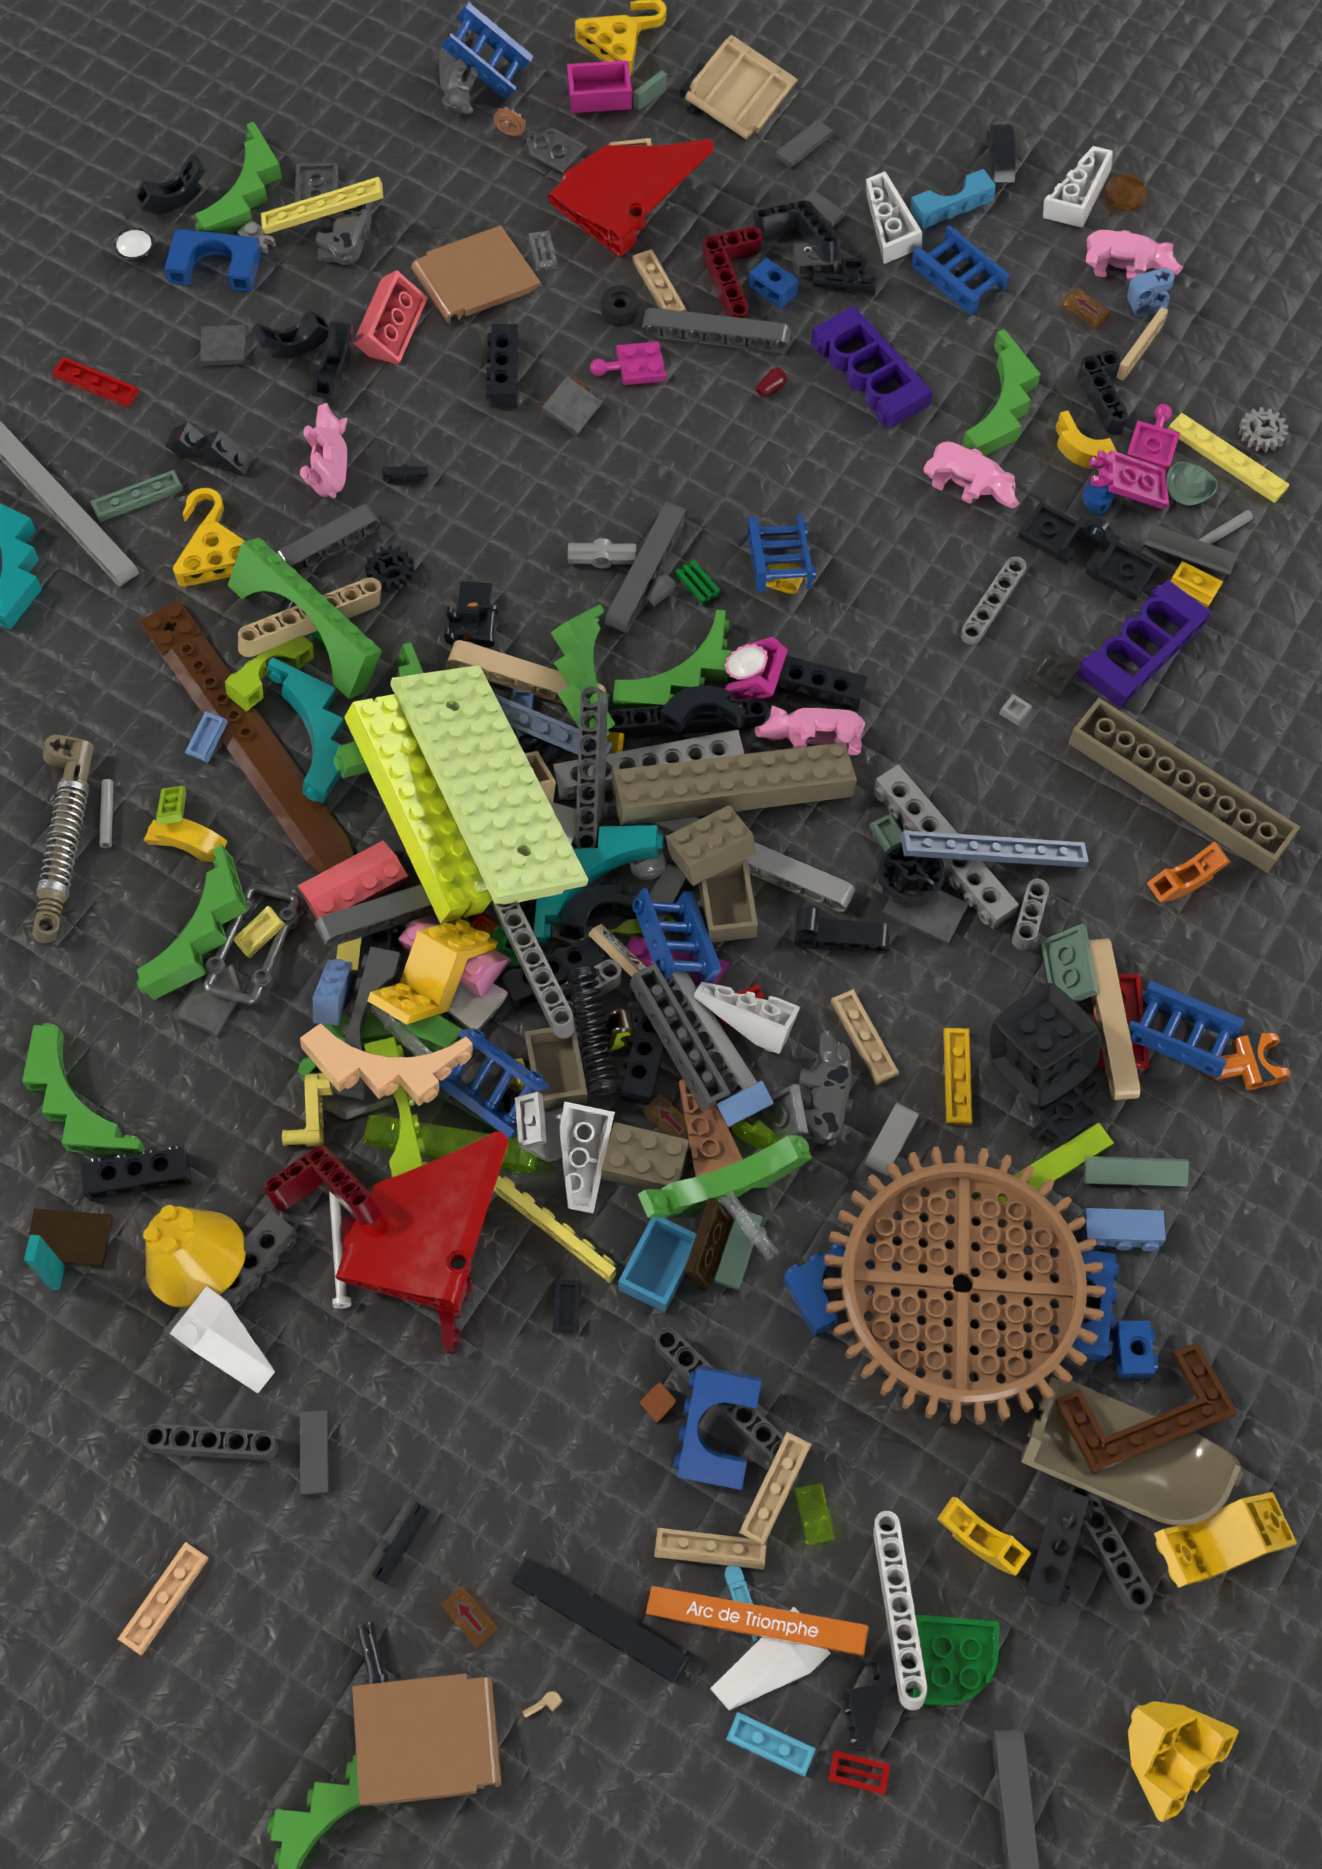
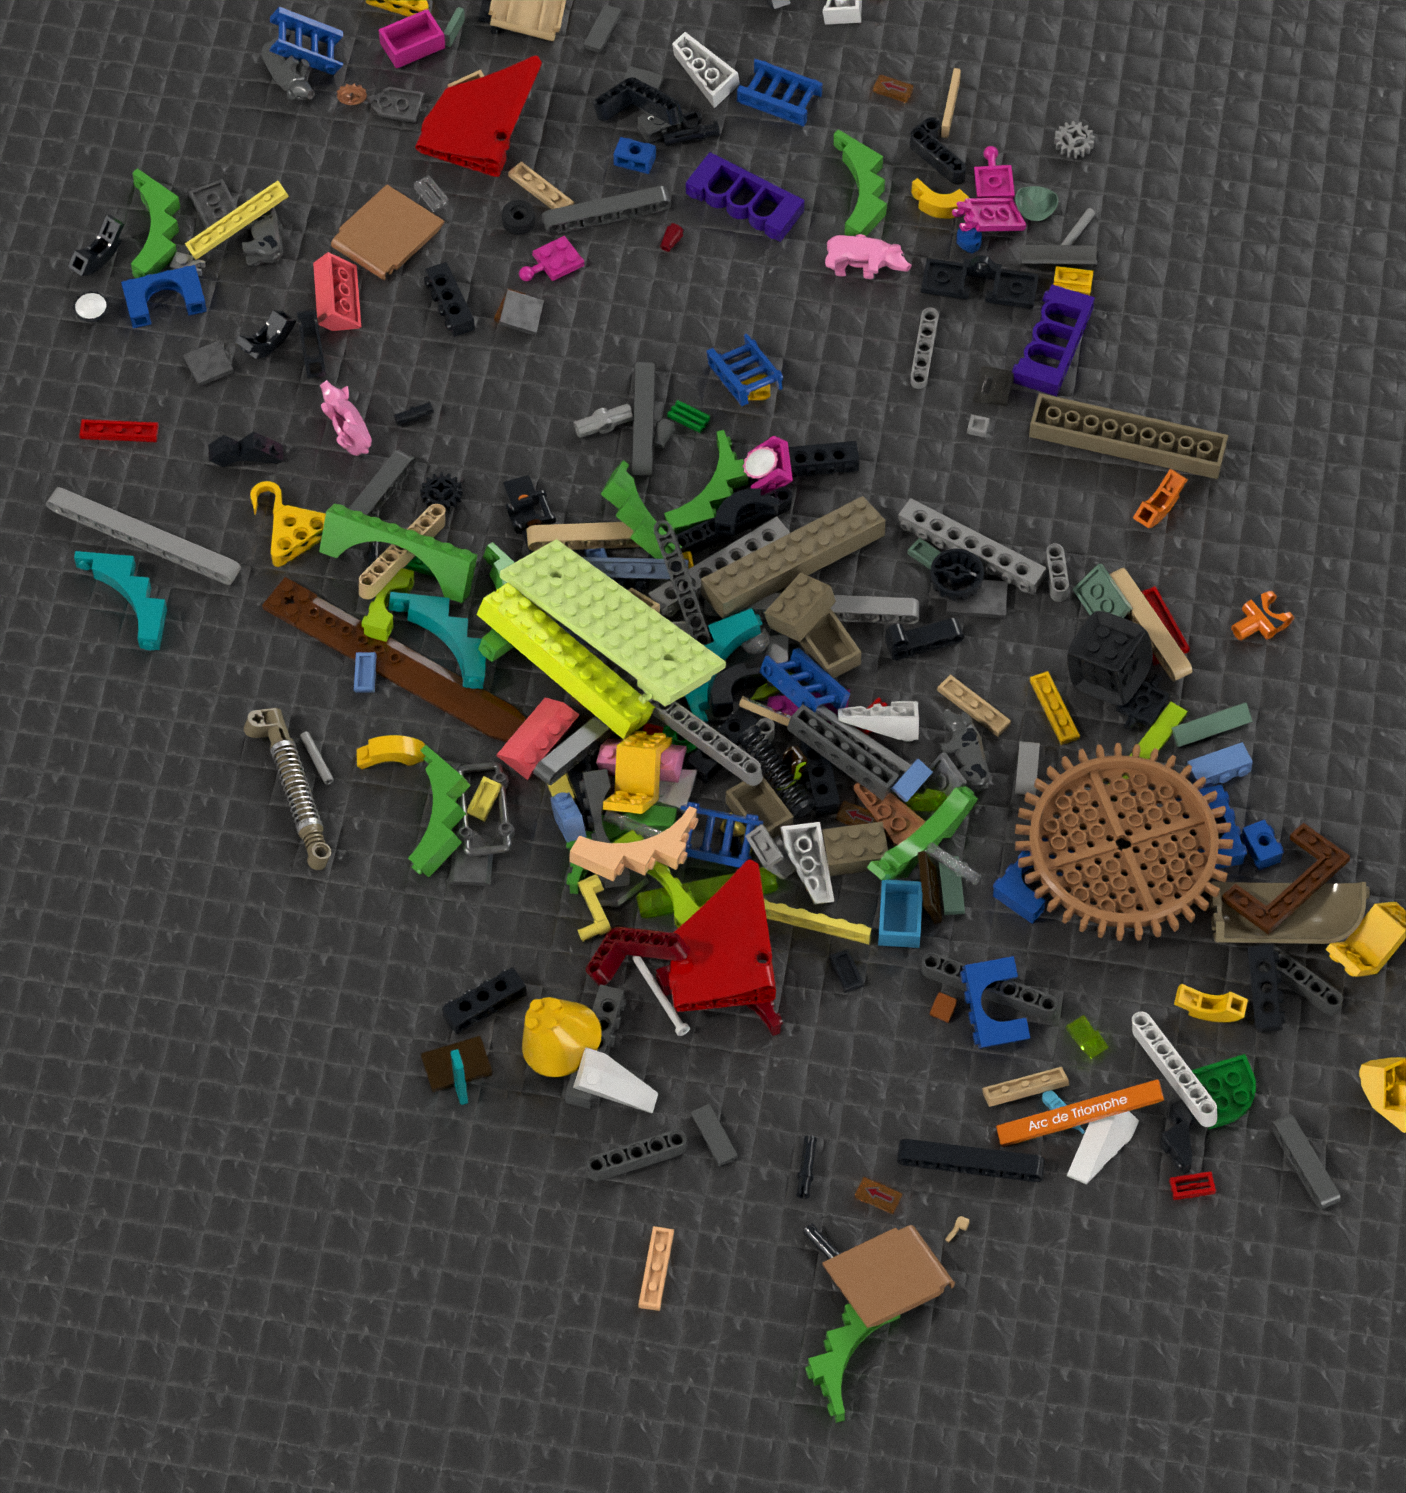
camera: 20 degrees left, 5 degrees down
(83, 1129) = (429, 984): bright green arch -> none
(137, 496) = (204, 509): sand green tile -> none
(171, 805) = (369, 730): lime tile -> none
(717, 254) = (578, 149): dark red beam -> none
(770, 1744) = (1124, 1192): medium azure tile -> none
(775, 1488) = (1053, 1027): tan tile -> none
(814, 727) = (834, 493): bright pink animal -> none
(932, 208) = (733, 48): dark azure arch -> none
(994, 849) = (1010, 533): sand blue plate -> none
(1128, 251) = (909, 30): bright pink animal -> none
(1147, 288) = (935, 59): medium blue piece -> none
(1194, 1011) = (1204, 598): blue fence -> none
(1229, 458) = (1056, 171): light yellow plate -> none

